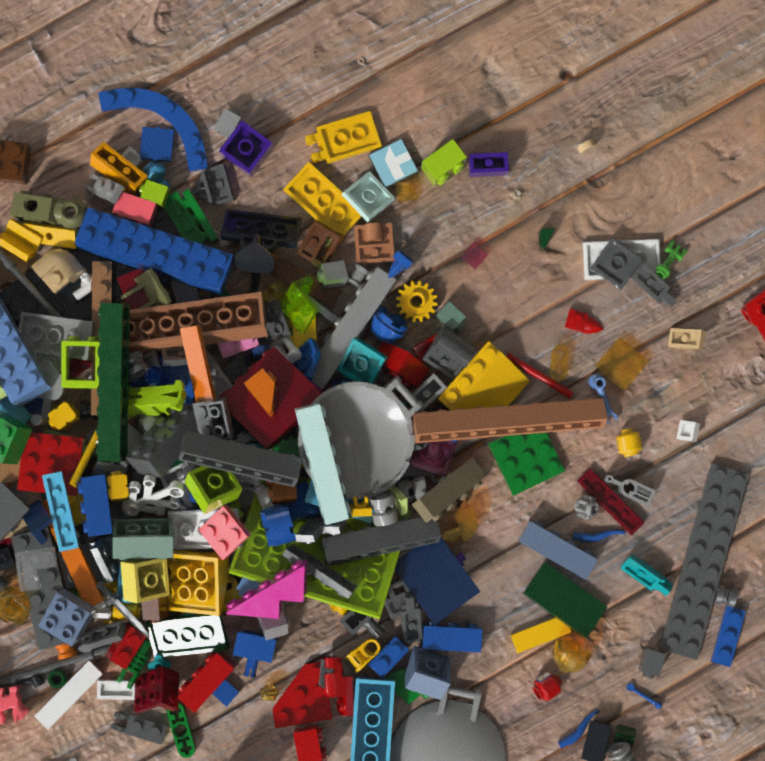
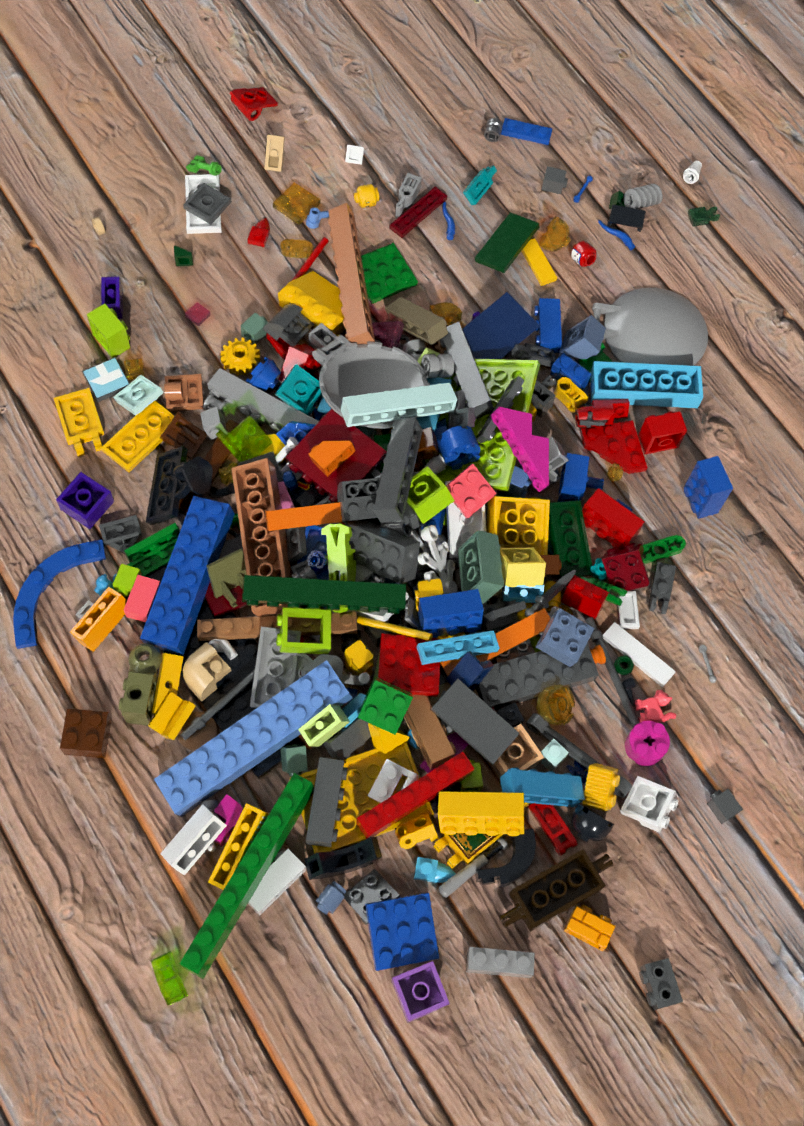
camera: 100 degrees left, 20 degrees down
(28, 566) = (512, 680): clear plate -> none
(102, 636) = (576, 606): dark grey hinge -> none
(105, 188) = (120, 629): light grey hinge -> none
(156, 144) = (75, 588): blue piece -> none
(227, 122) = (58, 520): light grey brick -> none
(360, 509) = (440, 377): yellow tile -> none
(400, 263) = (203, 364): blue tile -> none
(556, 549) = (463, 247): sand blue brick -> none
(586, 507) = (424, 225): light grey gear -> none
(652, 284) = (226, 176): dark grey hinge -> none
(703, 561) = (465, 147): dark grey plate -> none

